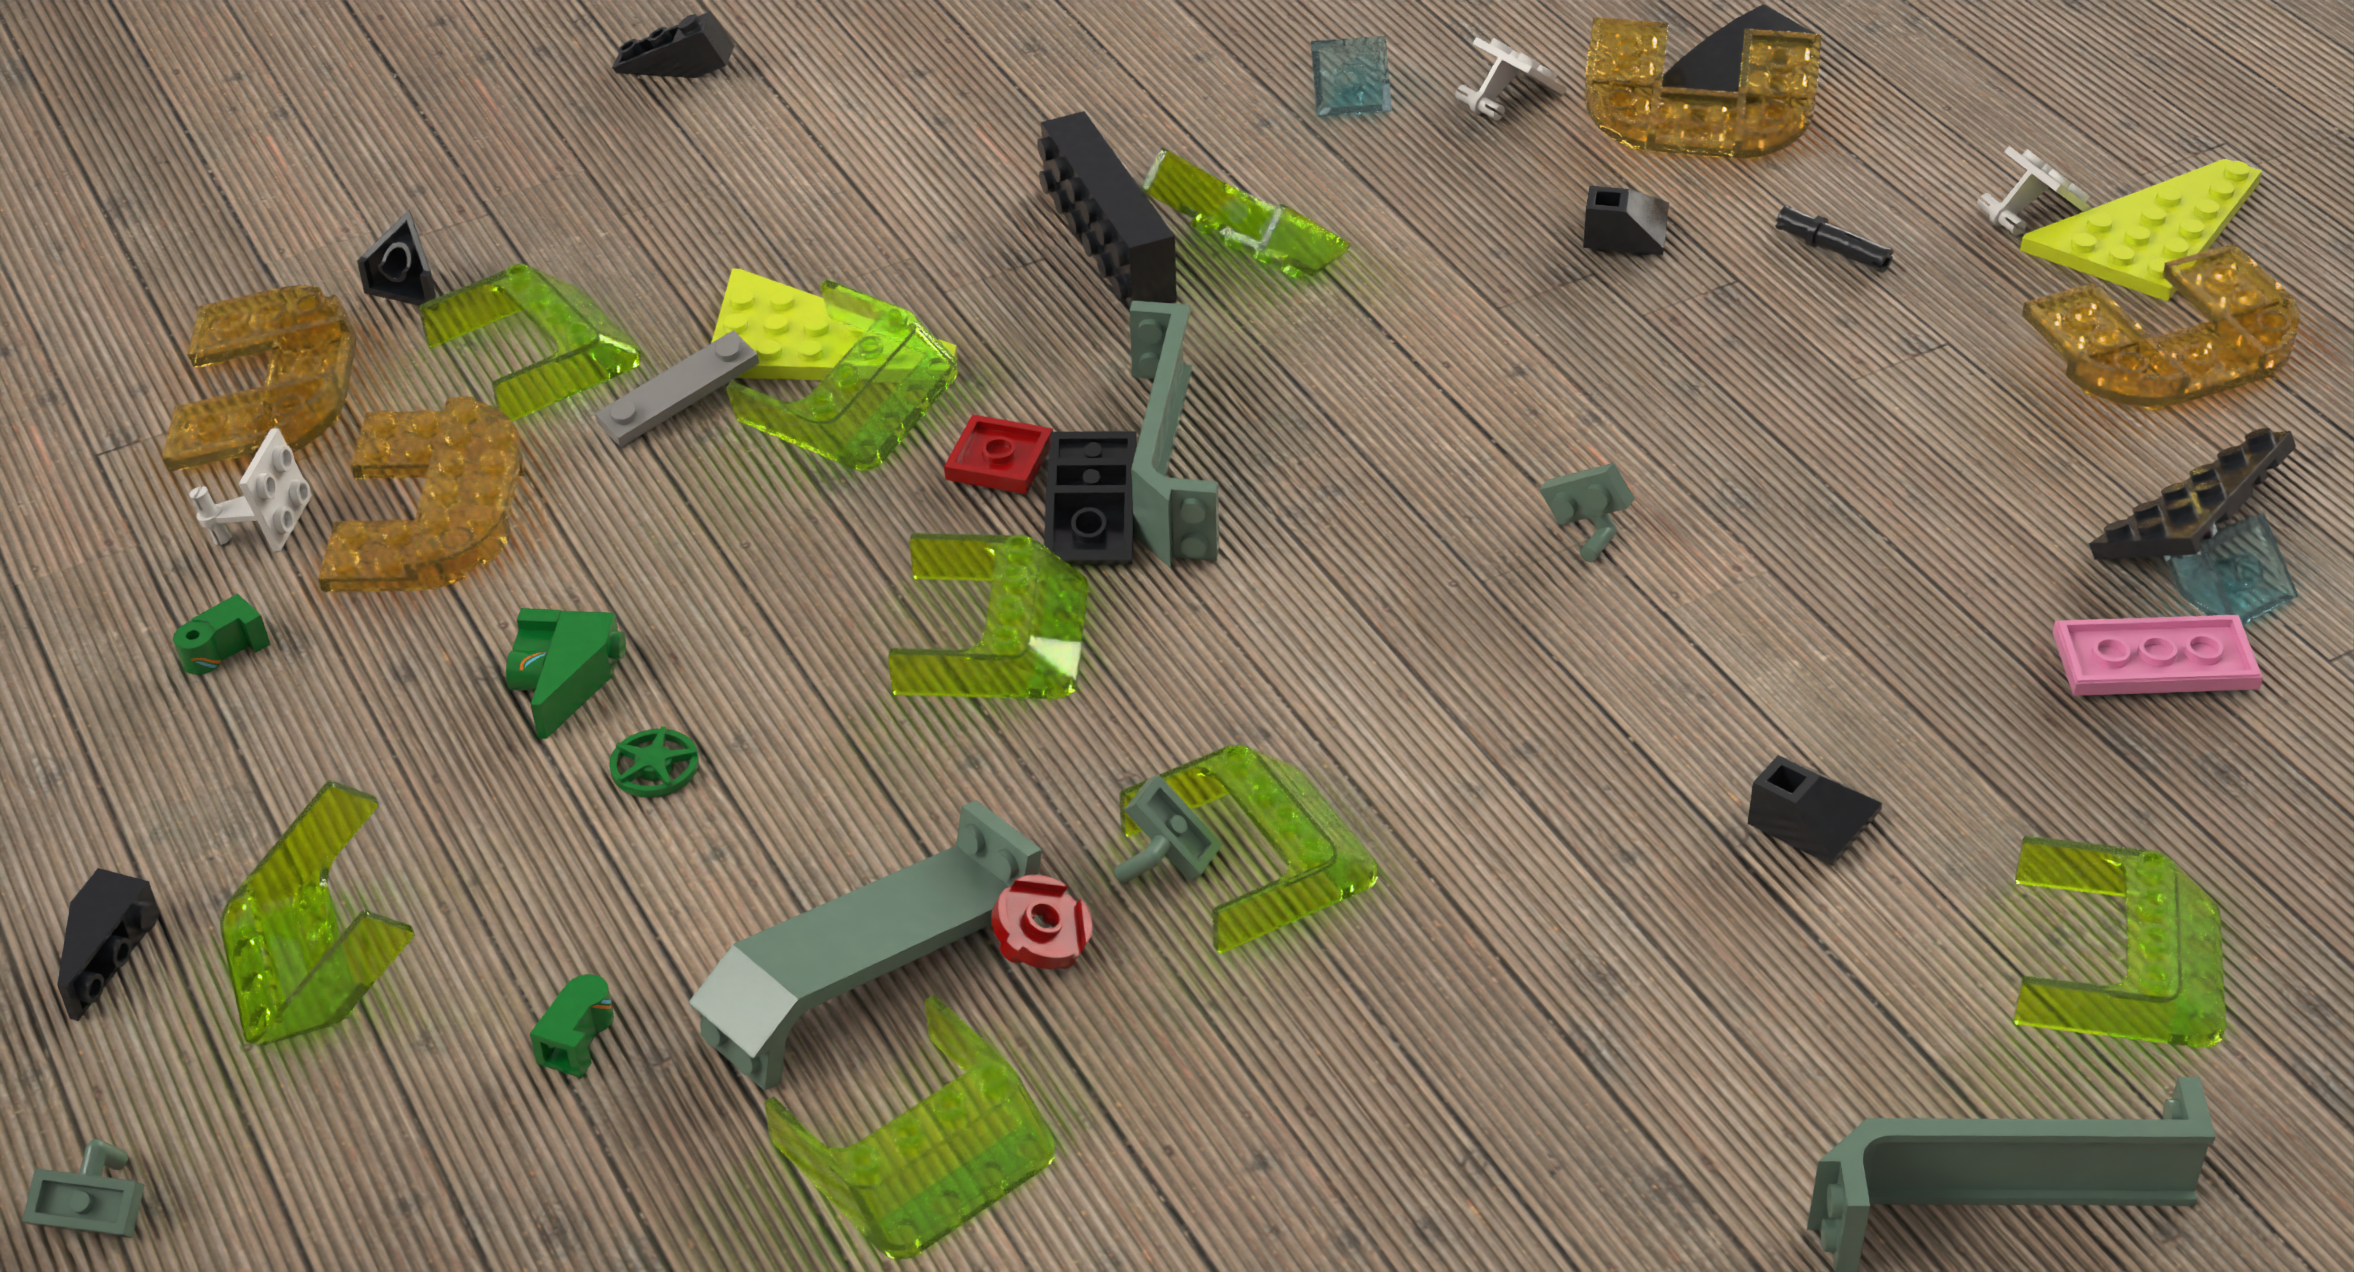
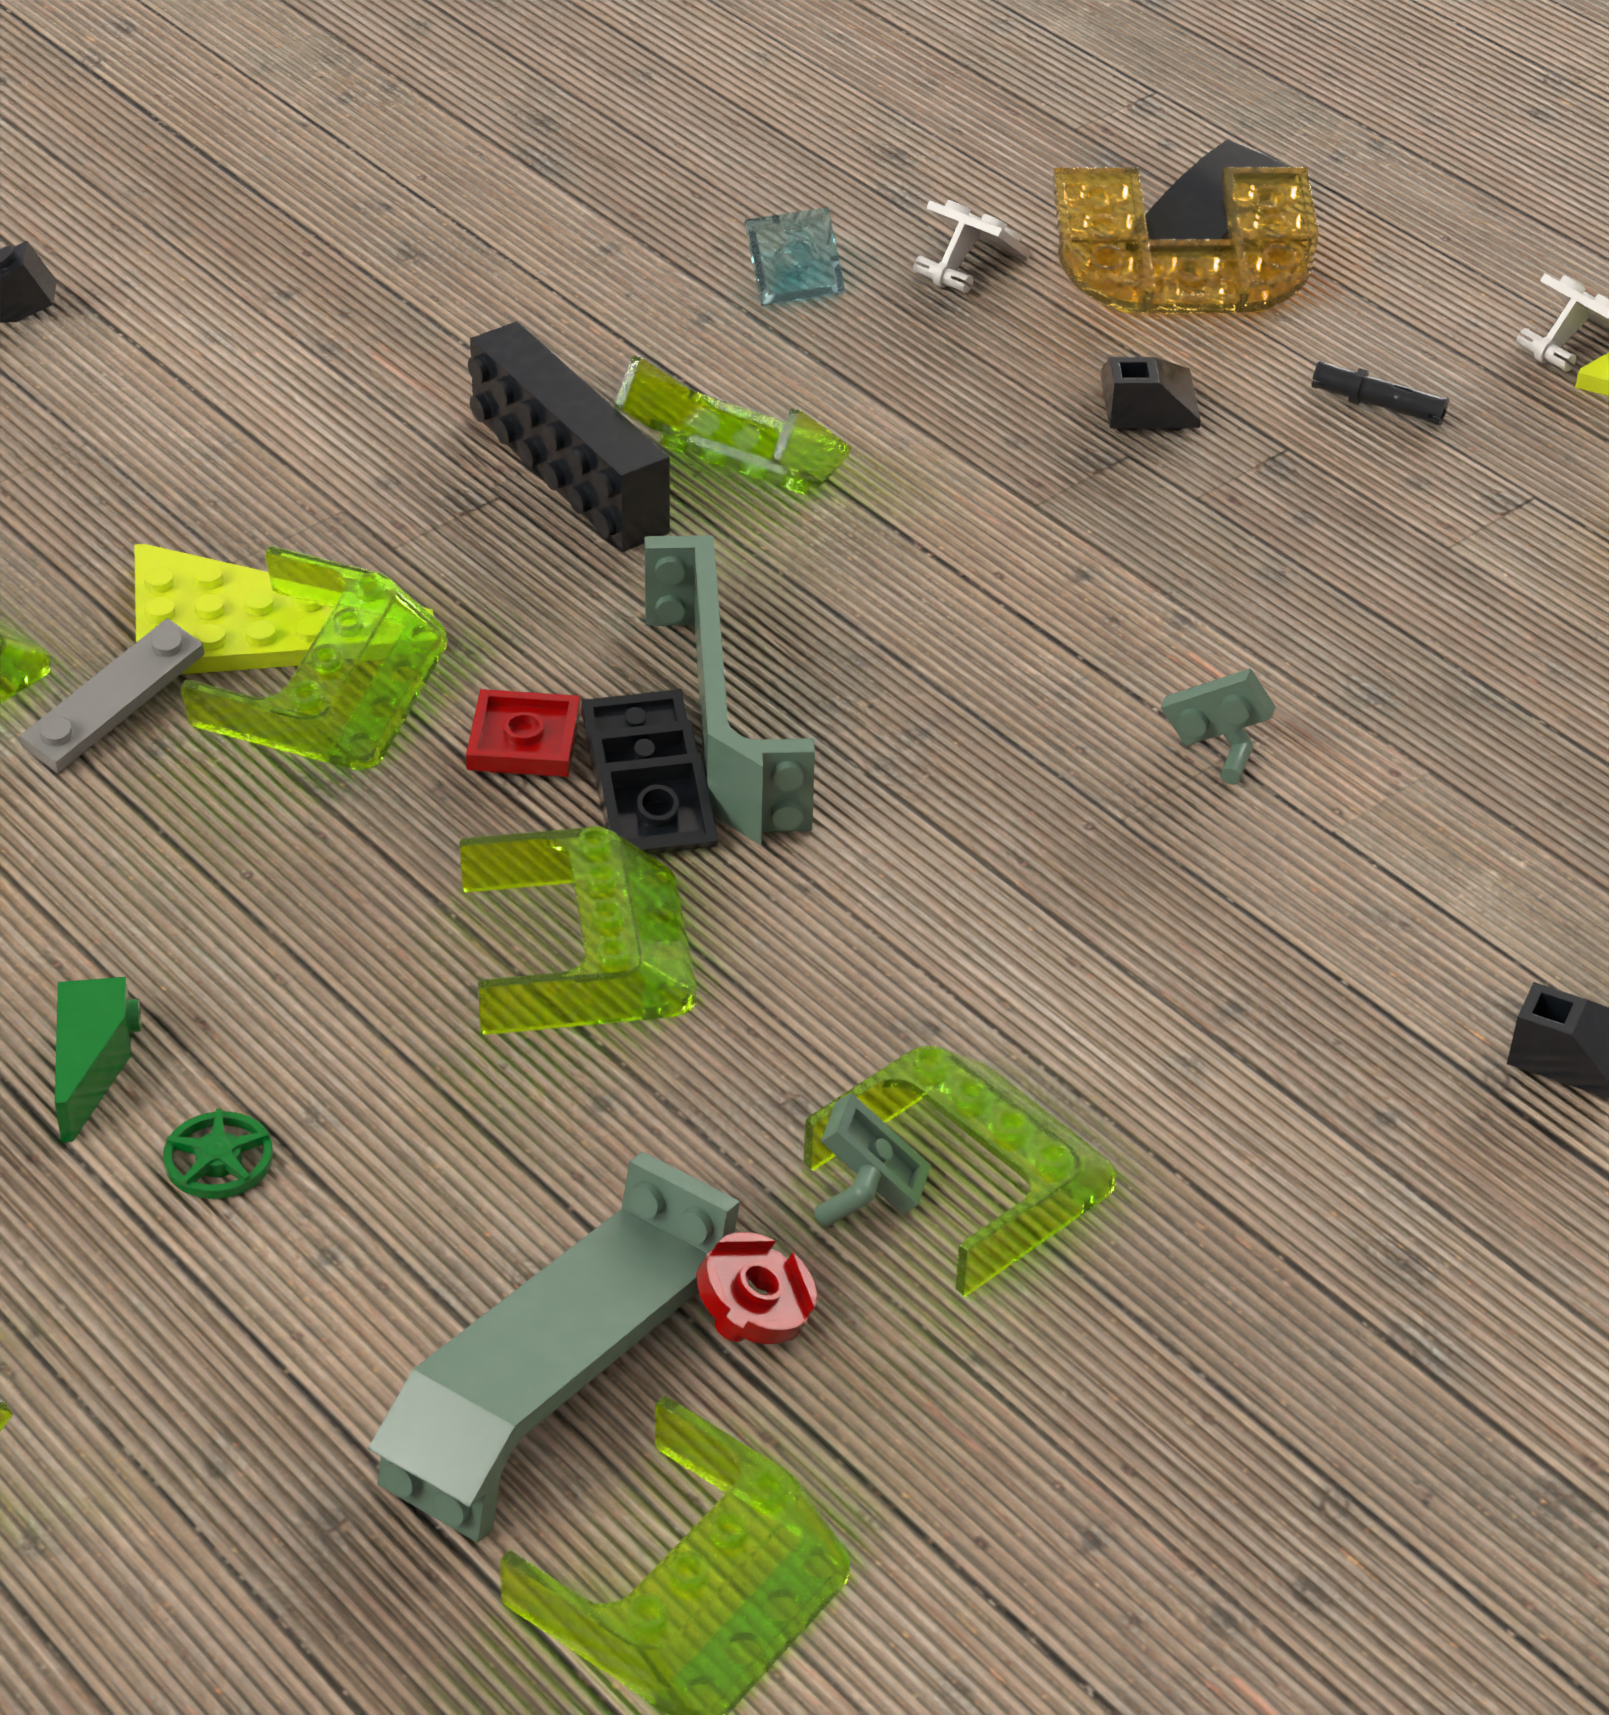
camera: 15 degrees left, 0 degrees up
(530, 647) = (31, 1033): green leg -> none
(571, 1024) = (214, 1508): green leg -> none

